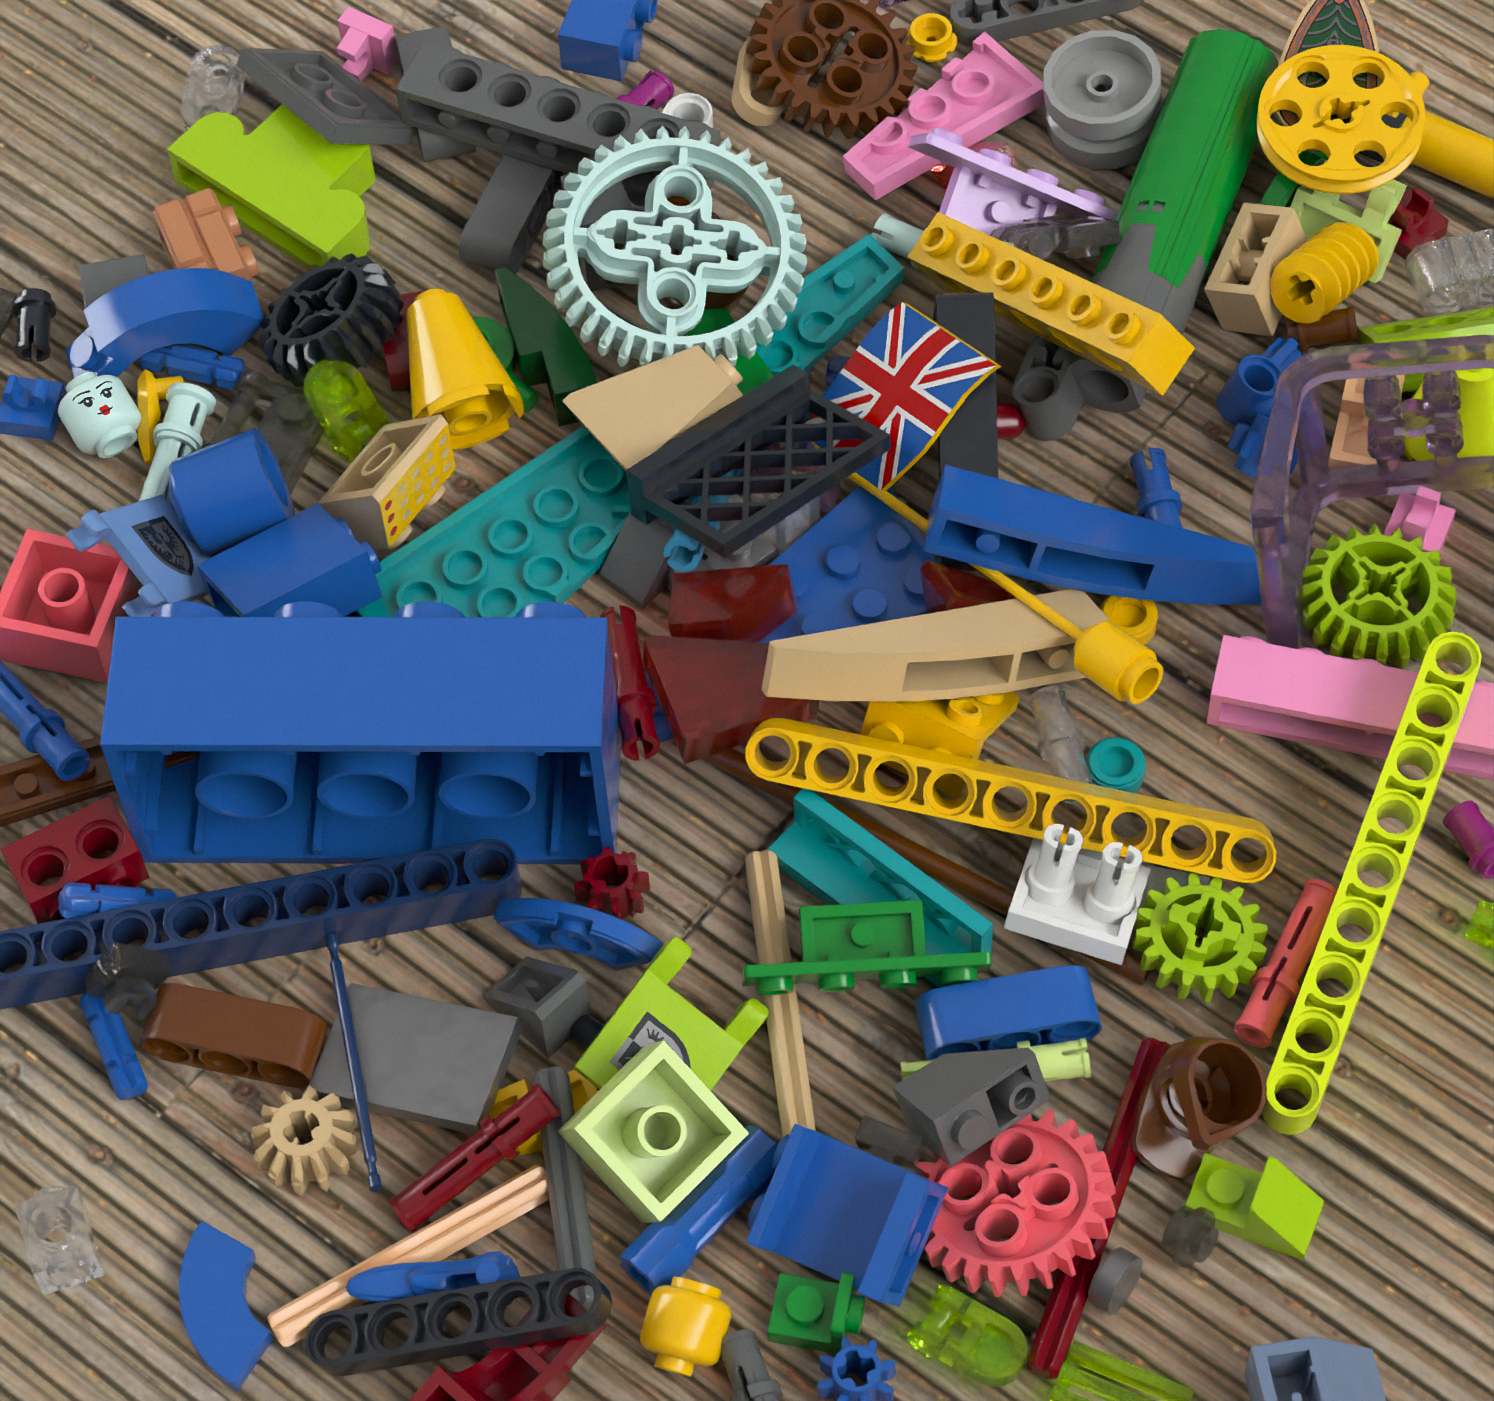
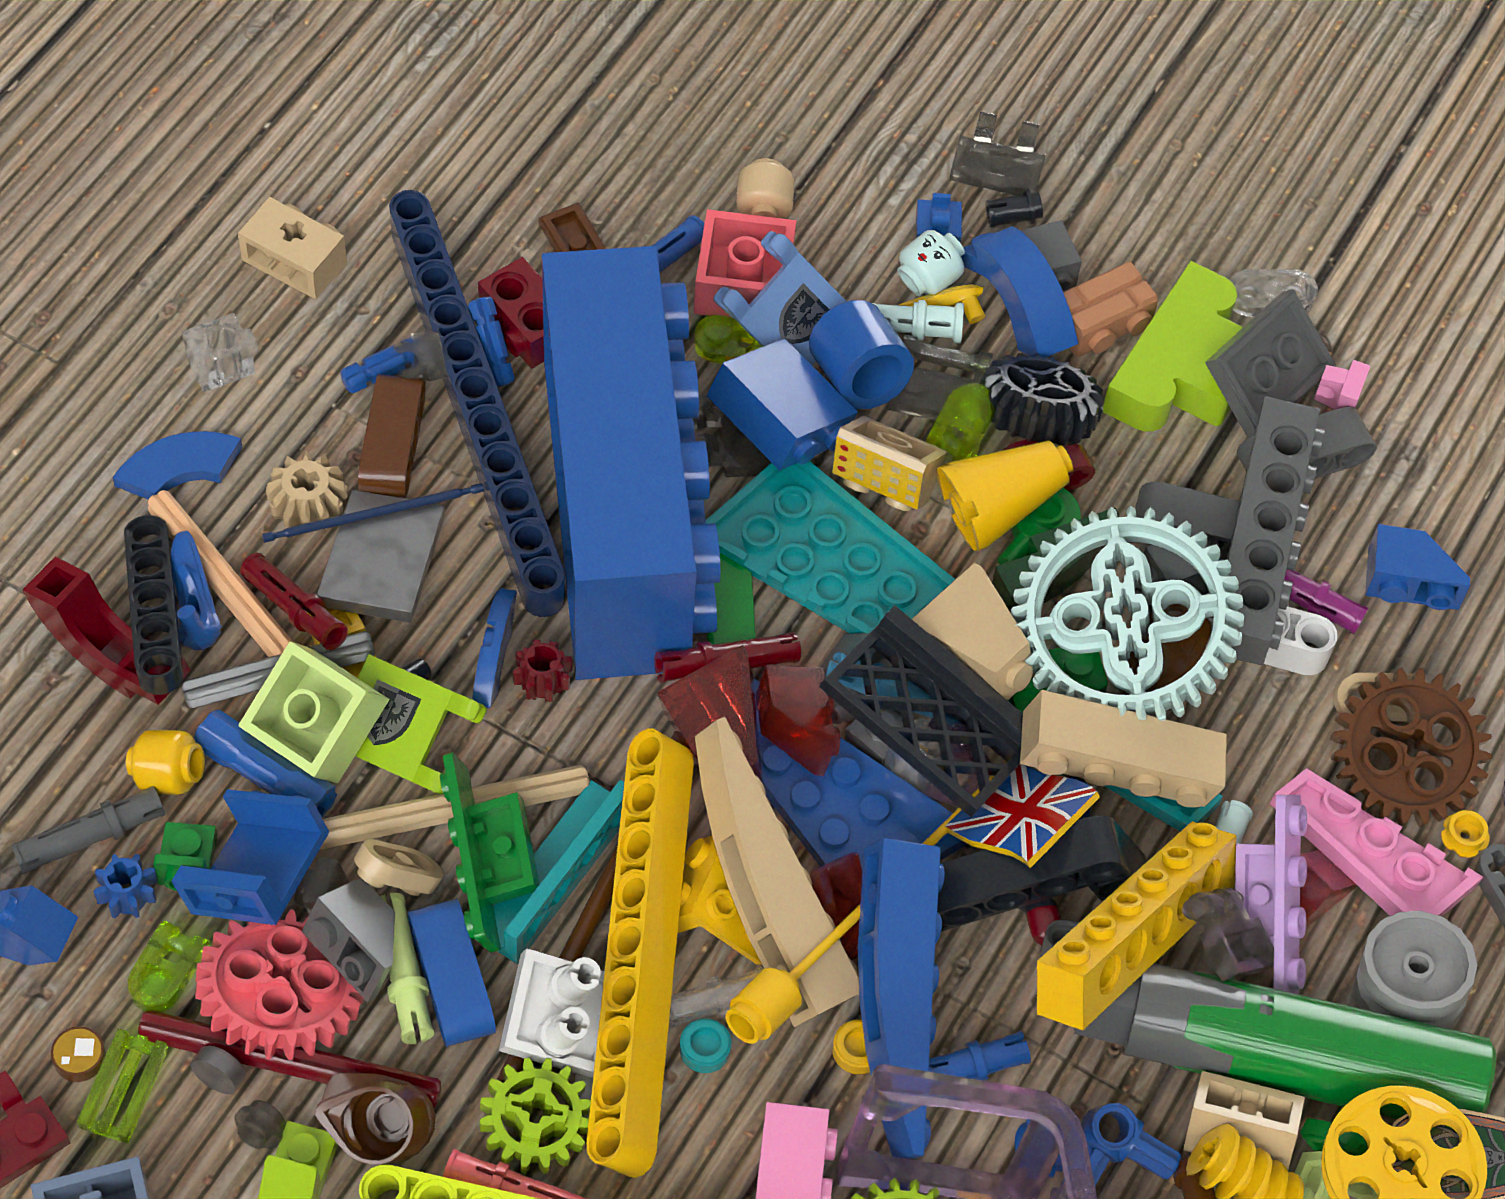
camera: 75 degrees right, 0 degrees up
(195, 364) = (997, 327): blue axle -> none
(544, 999) = (435, 633): dark grey slope -> none
(828, 301) = (1125, 752): none -> tan brick
(874, 1055) = (398, 867): none -> tan plate

